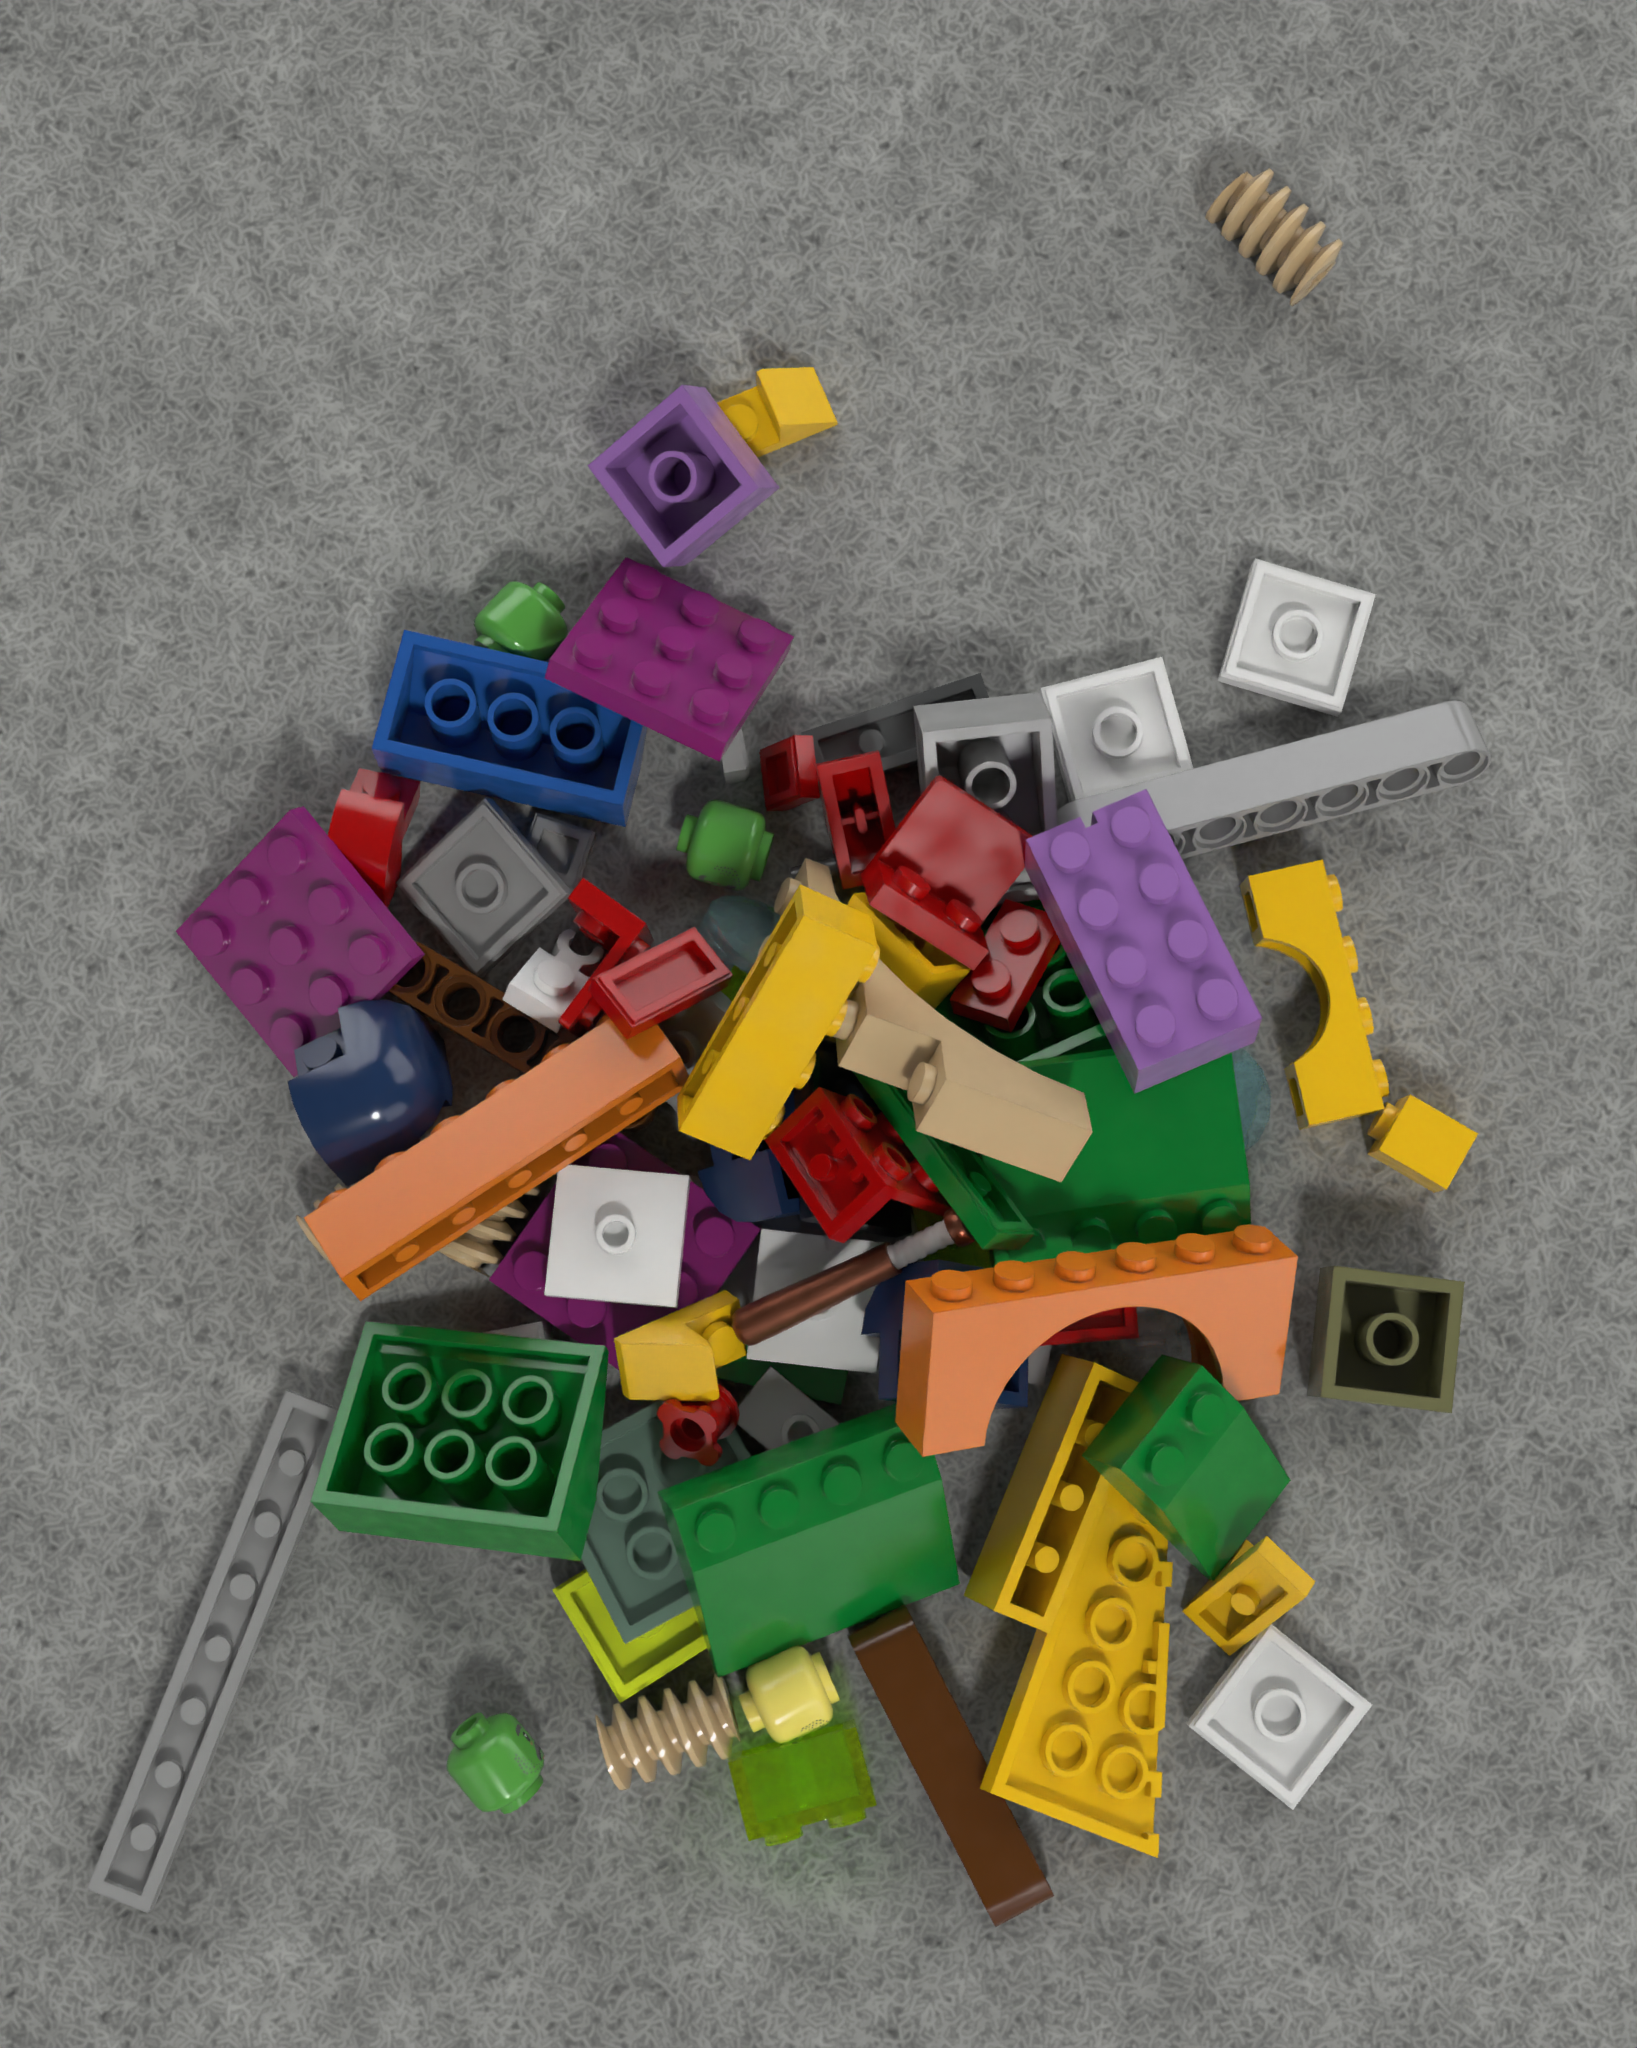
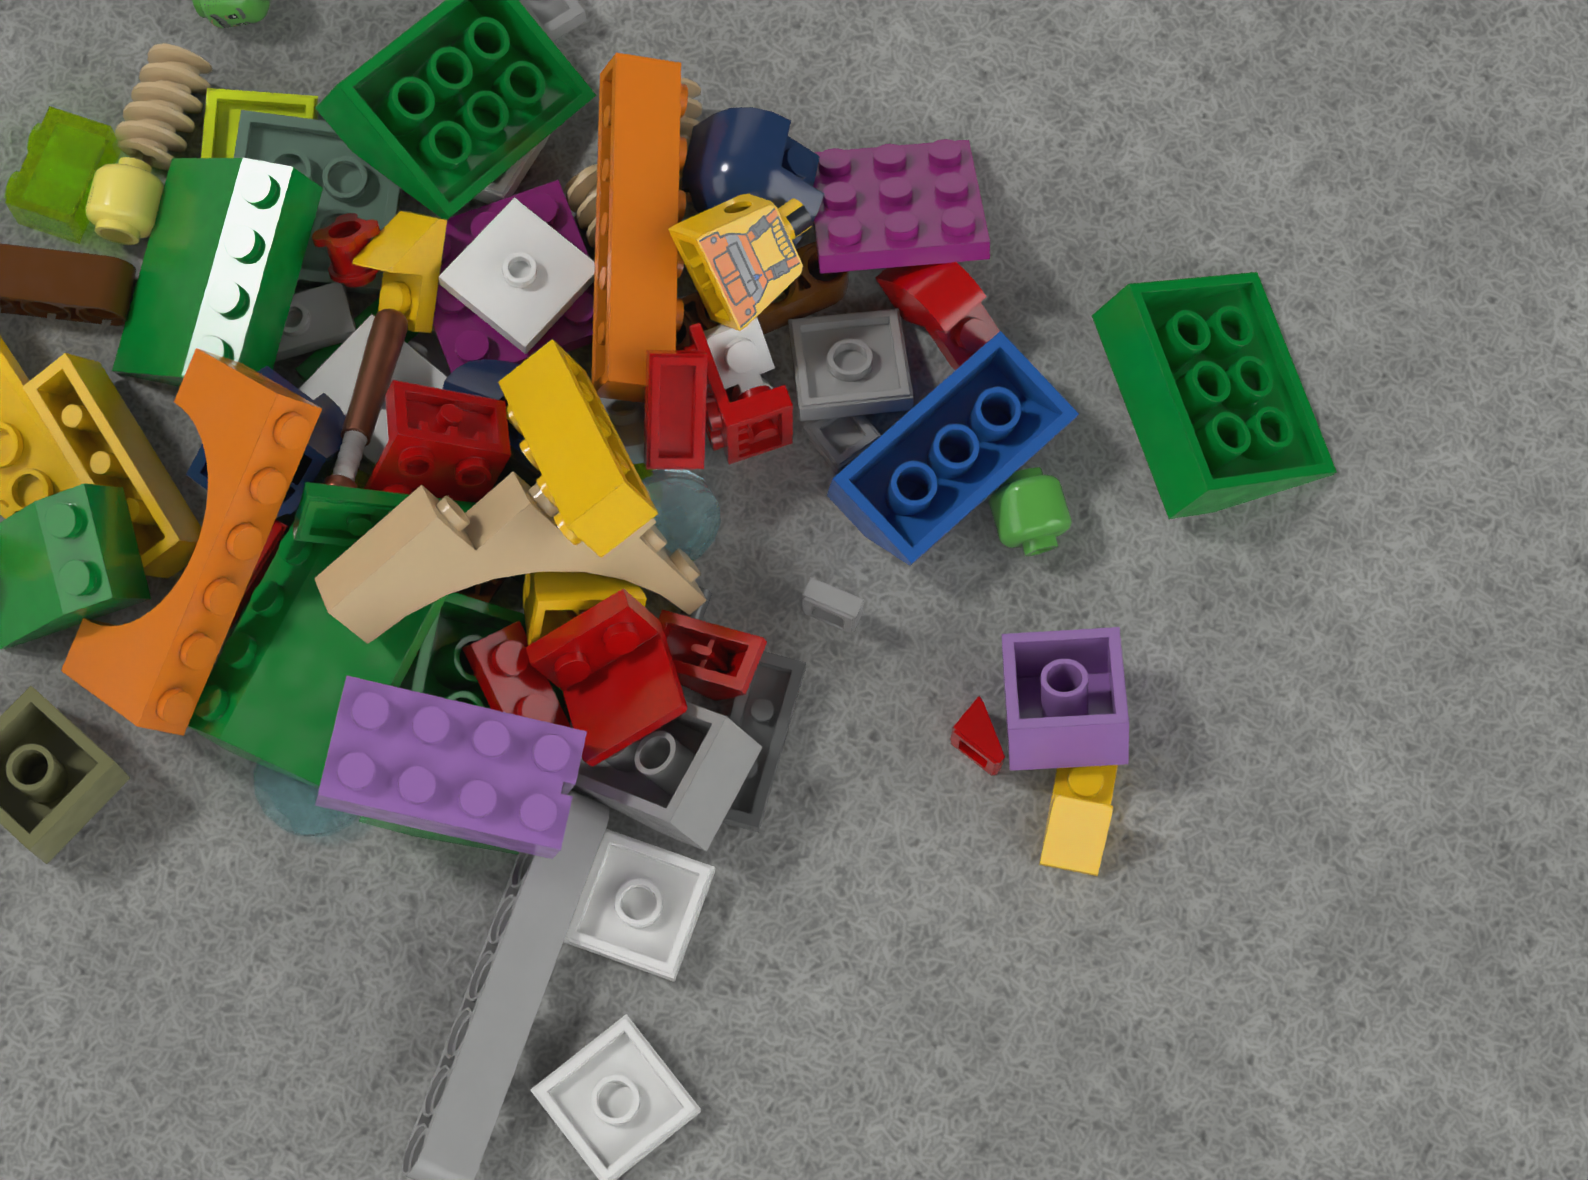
camera: 125 degrees right, 10 degrees down
(291, 541) = (1211, 391): none -> green slope
(461, 1028) = (742, 255): none -> torso
(670, 658) = (925, 594): magenta plate -> none
(725, 845) = (758, 550): bright green head -> none
(764, 539) = (977, 738): none -> red slope
(789, 773) = (783, 633): red tile -> none
(1297, 916) = (260, 883): yellow arch -> none
(1420, 1142) = (160, 911): yellow brick -> none

